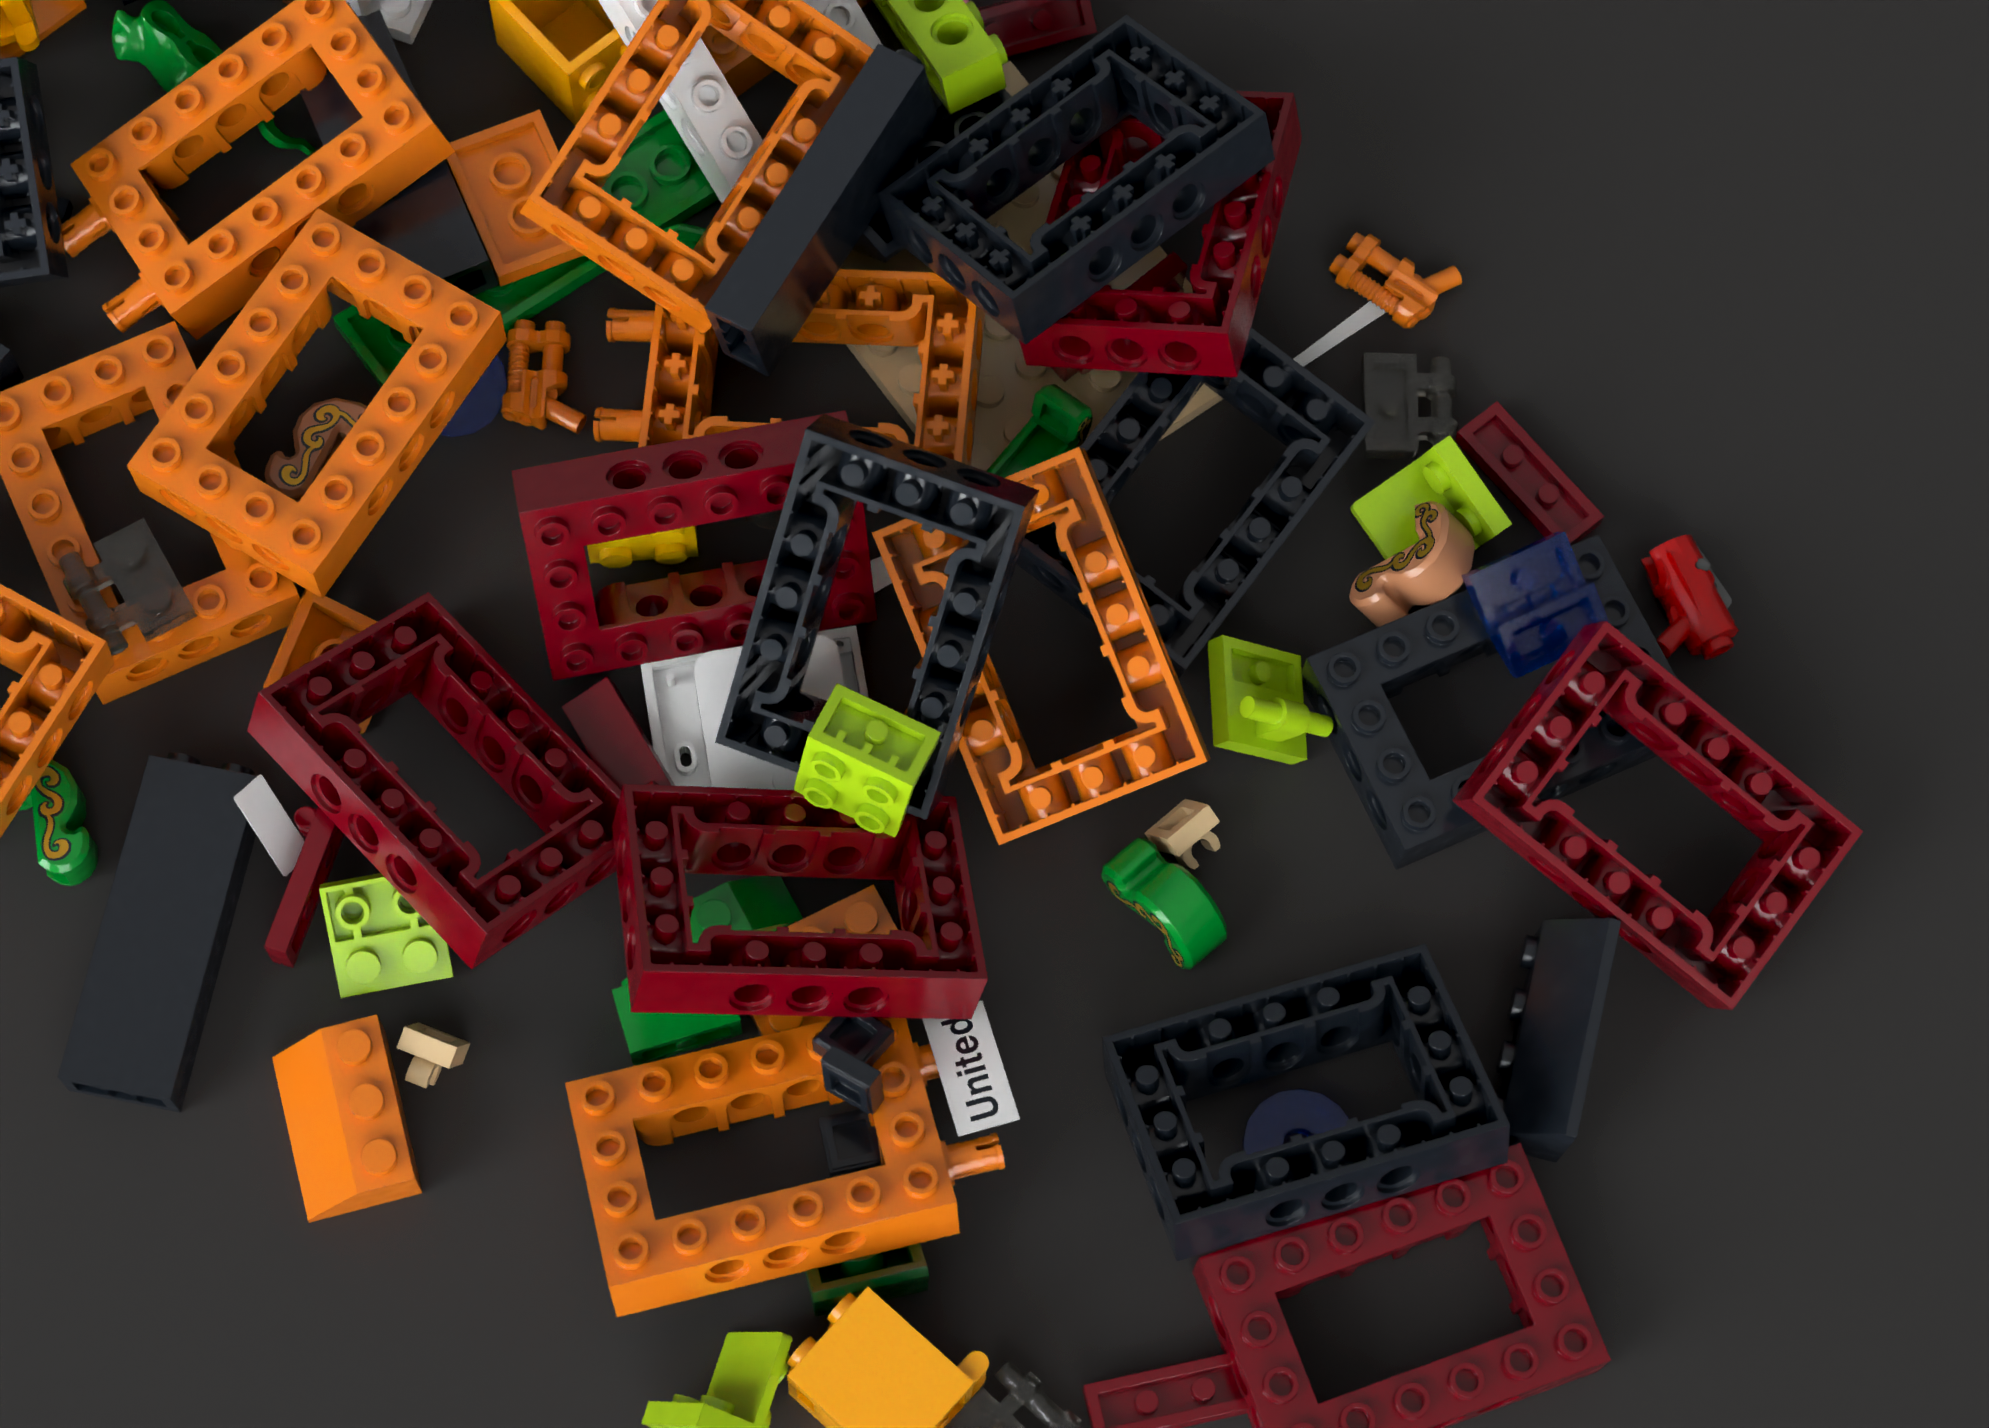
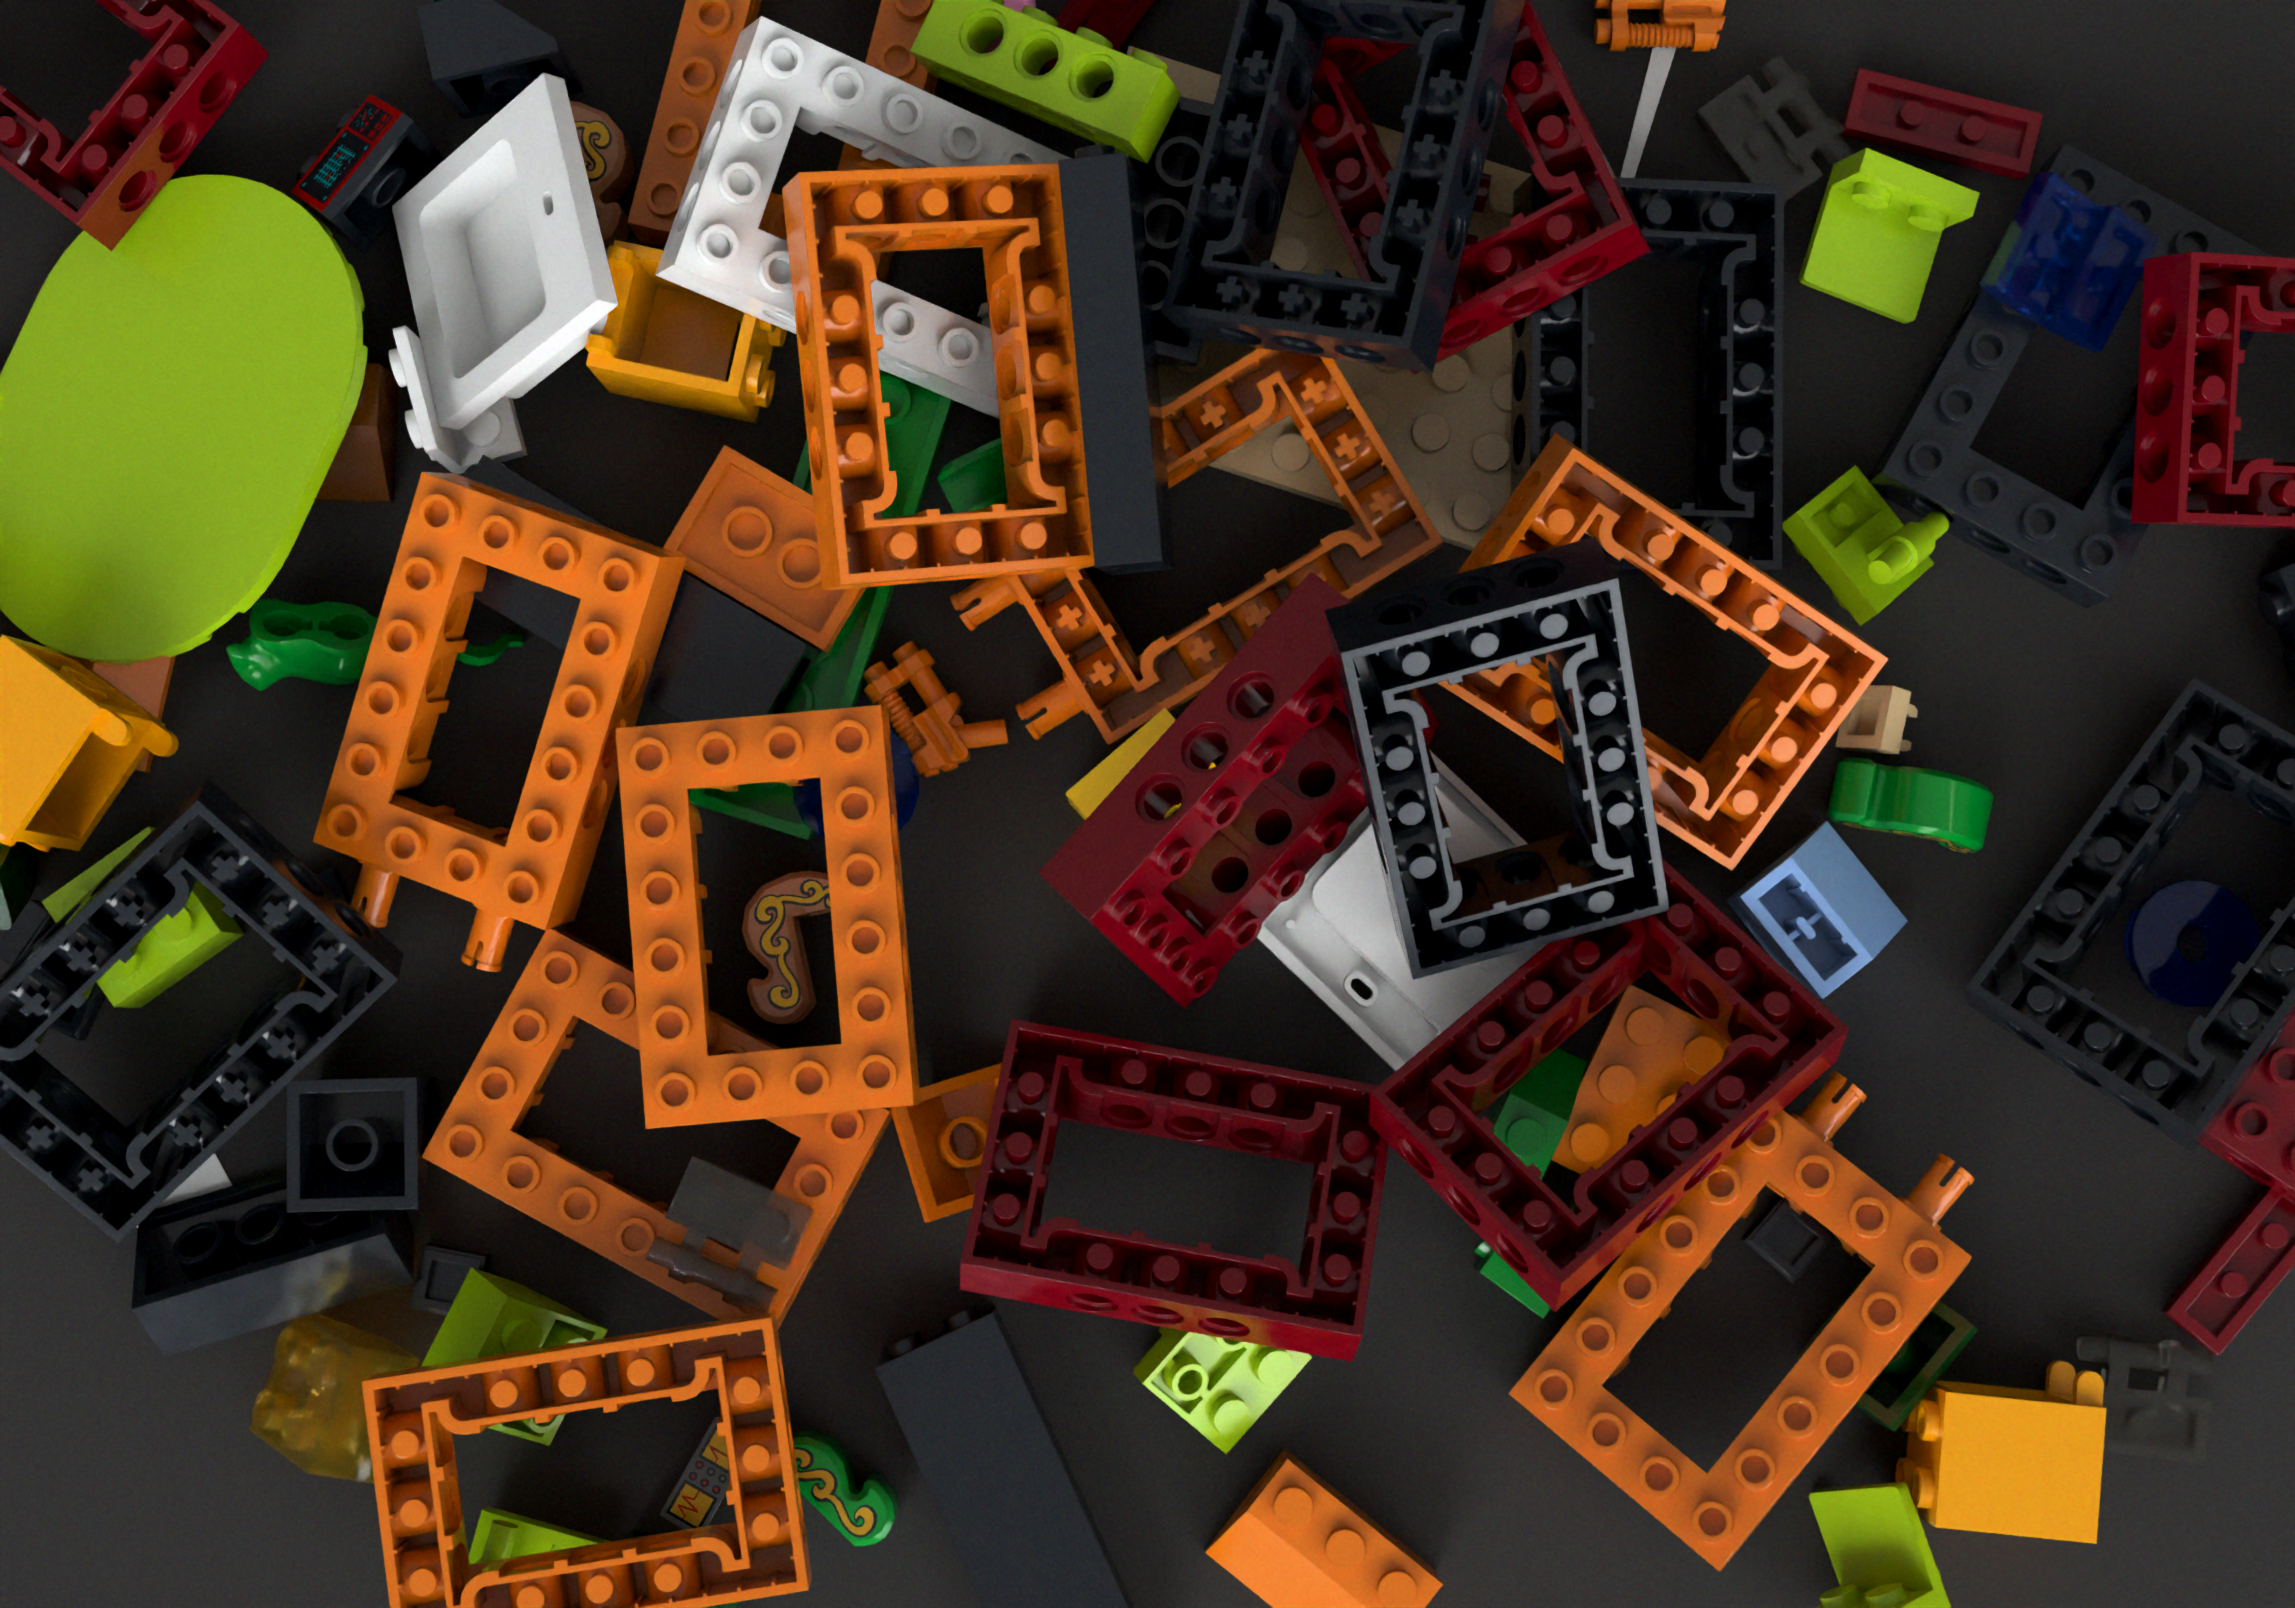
camera: 25 degrees left, 15 degrees up
(270, 823) = (1037, 1344): white sticker -> none
(302, 891) = (1113, 1382): dark red hinge -> none
(431, 1052) = (1350, 1442): tan tile -> none
(615, 737) = (1300, 1028): dark red hinge -> none
(852, 1080) = (1789, 1212): black tile -> none
(858, 1036) = (1756, 1170): black tile -> none
(864, 760) = (1588, 902): lime bracket -> none
(971, 1072) = (1881, 1115): white sticker -> none
(1043, 925) = (1818, 912): none -> light blue slope
(1056, 427) = (1478, 448): green animal -> none
(1419, 573) = (1927, 305): nougat animal -> none
(1691, 598) = (2181, 140): red piece -> none

